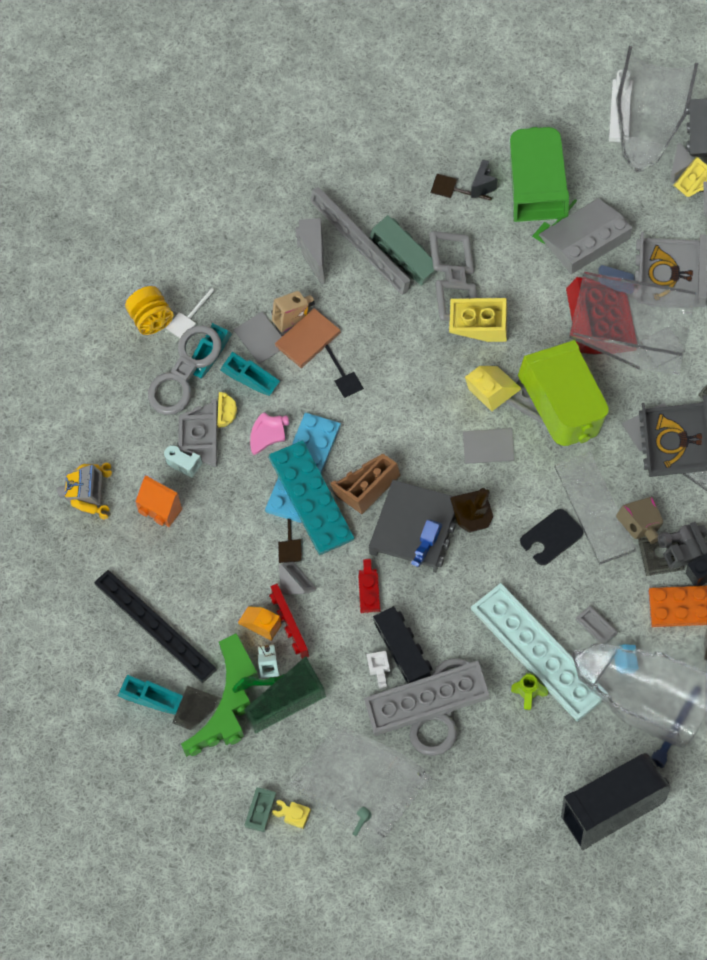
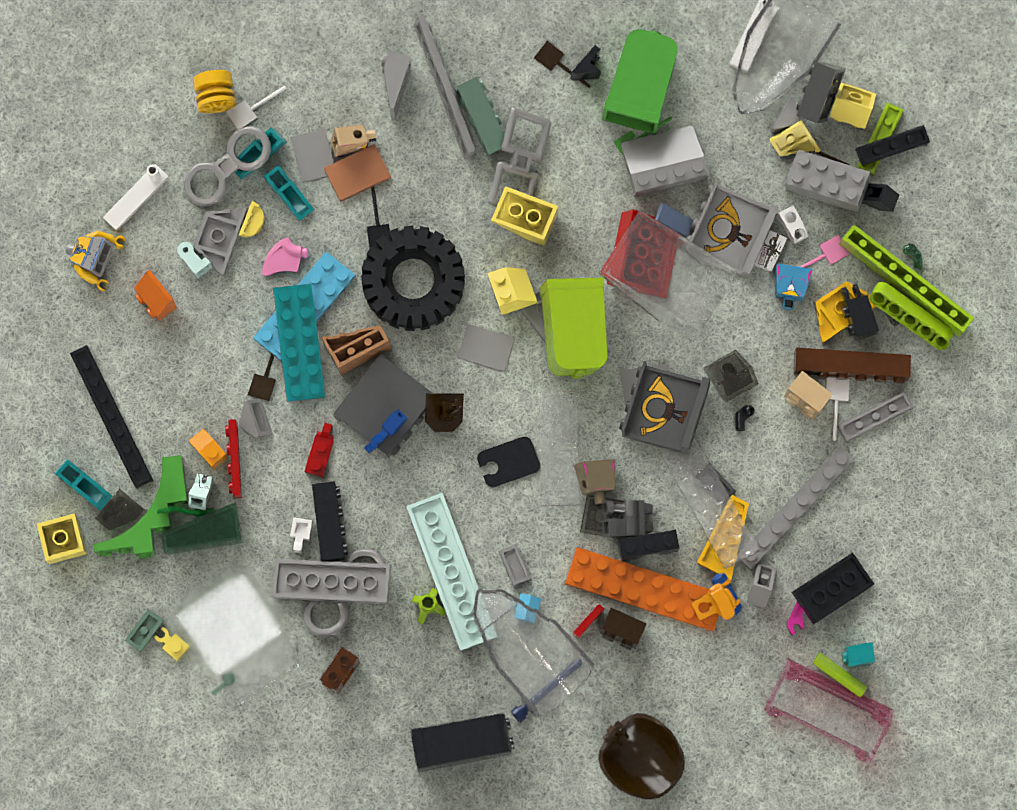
camera: 10 degrees right, 15 degrees up
(107, 425) = (136, 197): none -> white piece
(147, 750) = (61, 539): none -> light yellow brick
(404, 376) = (405, 245): none -> black tyre
(469, 775) = (340, 670): none -> reddish brown panel
(690, 647) = (586, 623): none -> red tile

